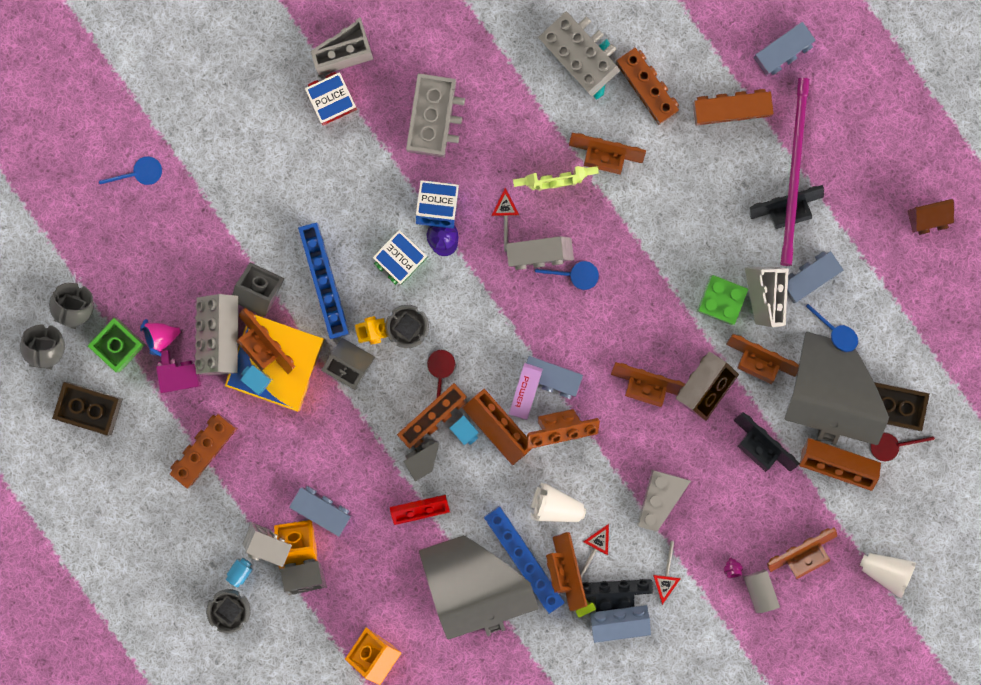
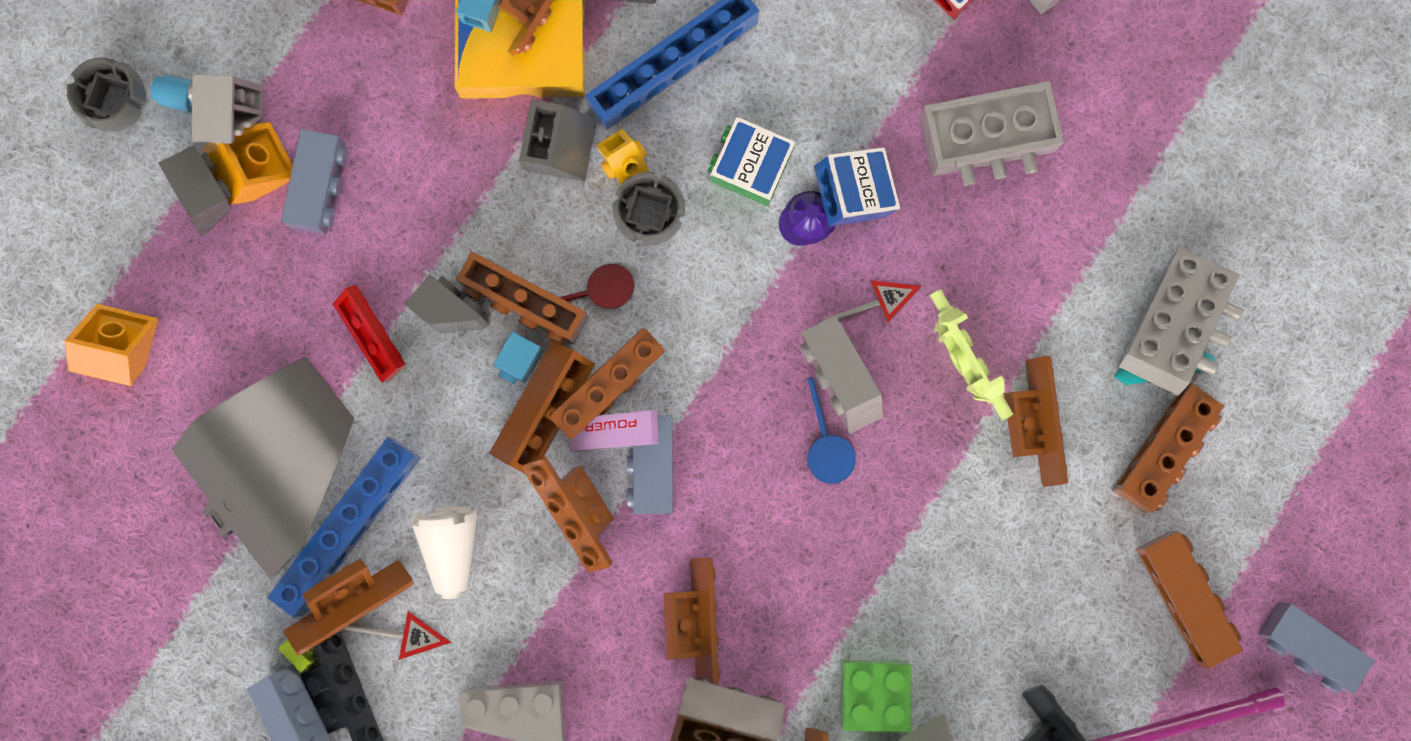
camera: 70 degrees right, 5 degrees down
(498, 385) = (607, 383): none -> dark orange bracket

